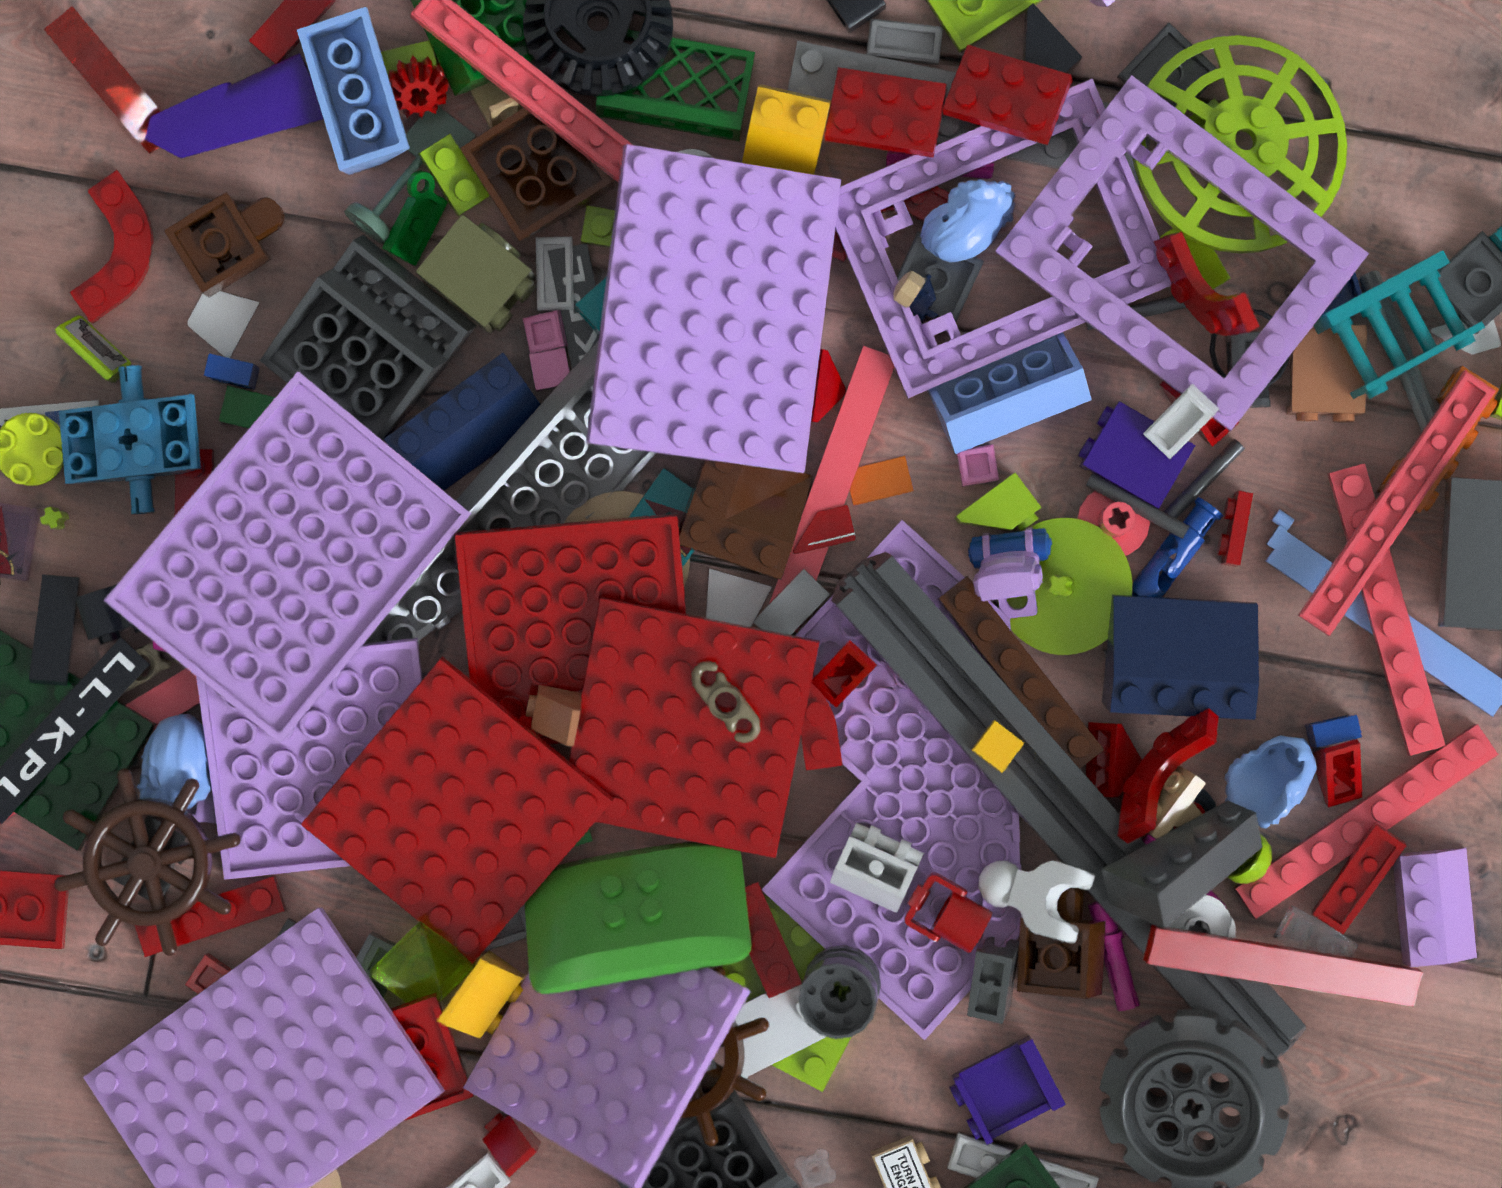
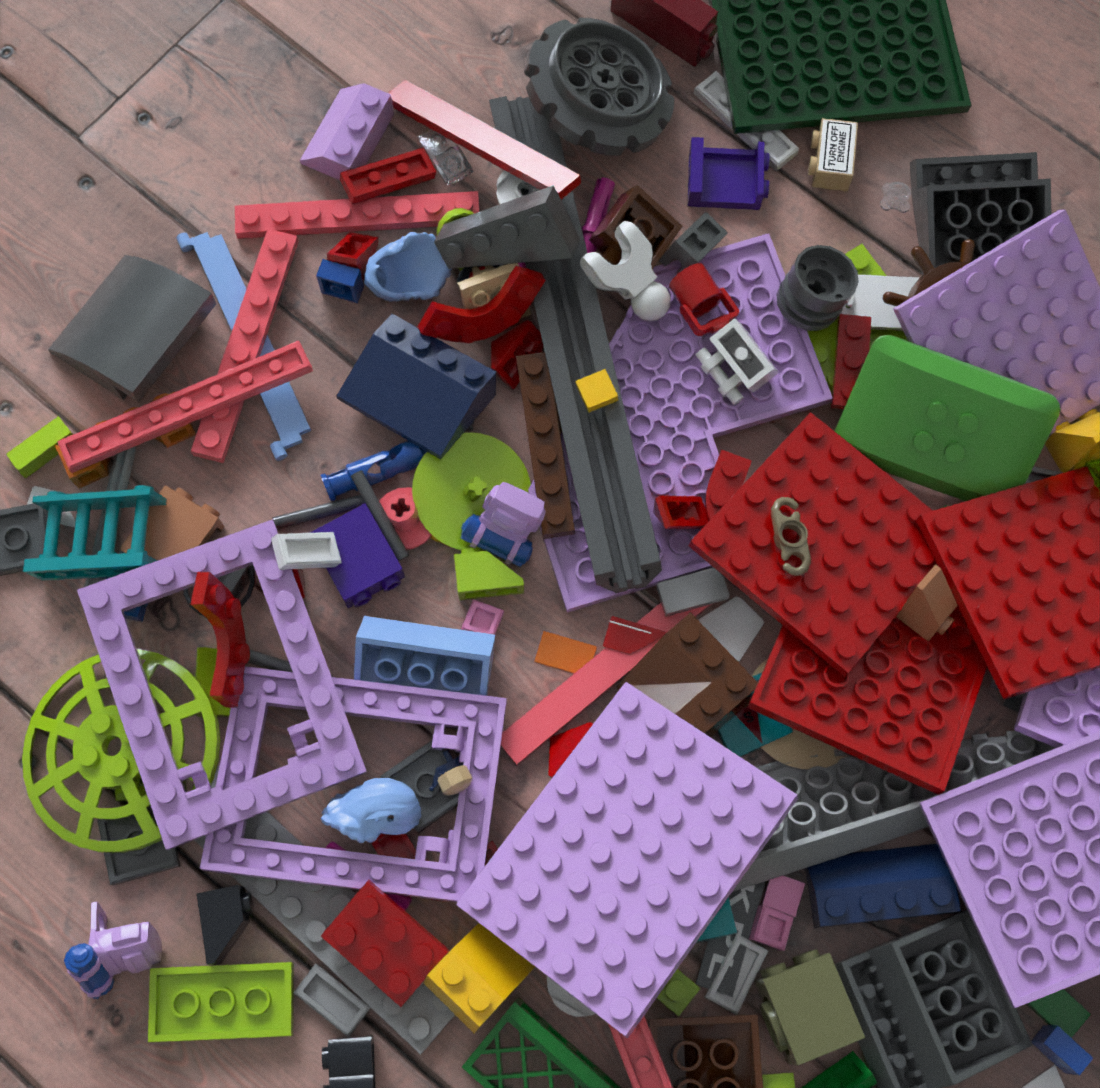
camera: 150 degrees left, 15 degrees down
(1007, 94) = (276, 896): red plate -> none
(1232, 543) = (309, 468): red plate -> none

